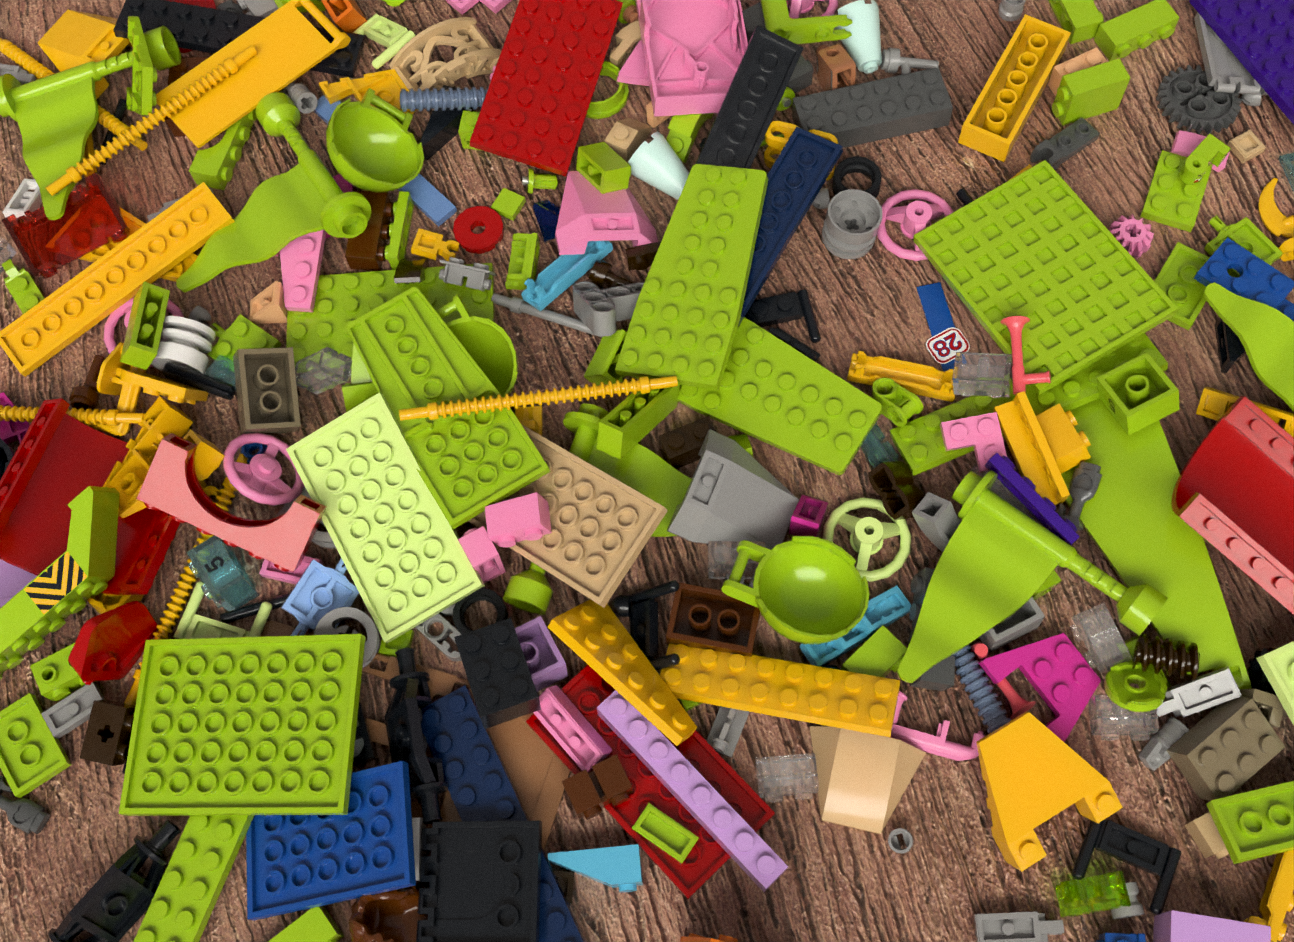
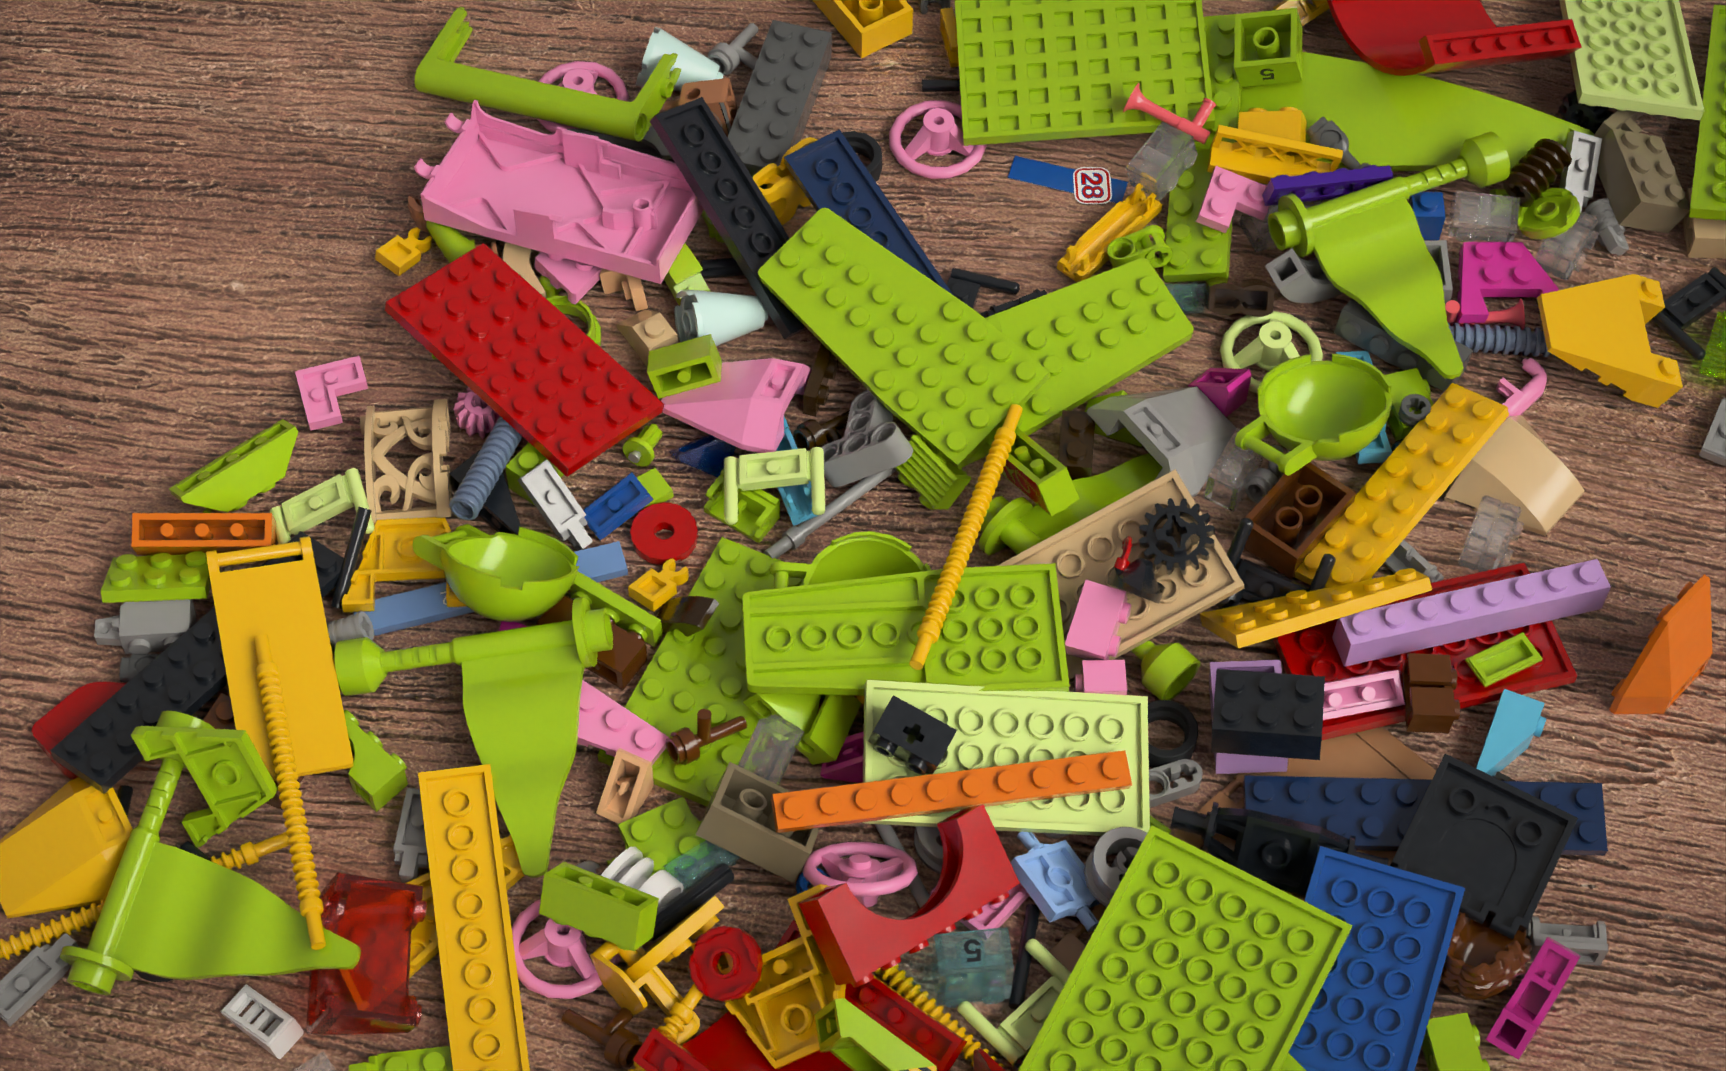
camera: 70 degrees left, 10 degrees down
(148, 421) = (745, 969): none -> red tile
(309, 318) = (684, 745): none -> reddish brown piece
(335, 495) = (950, 791): none -> orange plate
(356, 65) = (351, 556): none -> black bar
(356, 453) = (930, 734): none -> black brick
(452, 154) = (556, 504): none -> hinge
(456, 271) = (721, 568): light grey hinge -> none
(480, 190) = (616, 506): none -> blue plate
(544, 260) = (774, 471): none -> yellowish green plate
(553, 527) = (1136, 576): none -> black piece
(618, 533) = (1189, 533): none -> black gear
(851, 224) = (912, 182): light grey wheel -> none
(859, 655) = (1418, 402): none -> dark grey bush
(894, 842) = (1605, 469): light grey hinge -> none
(1072, 593) = (1429, 213): none -> blue brick

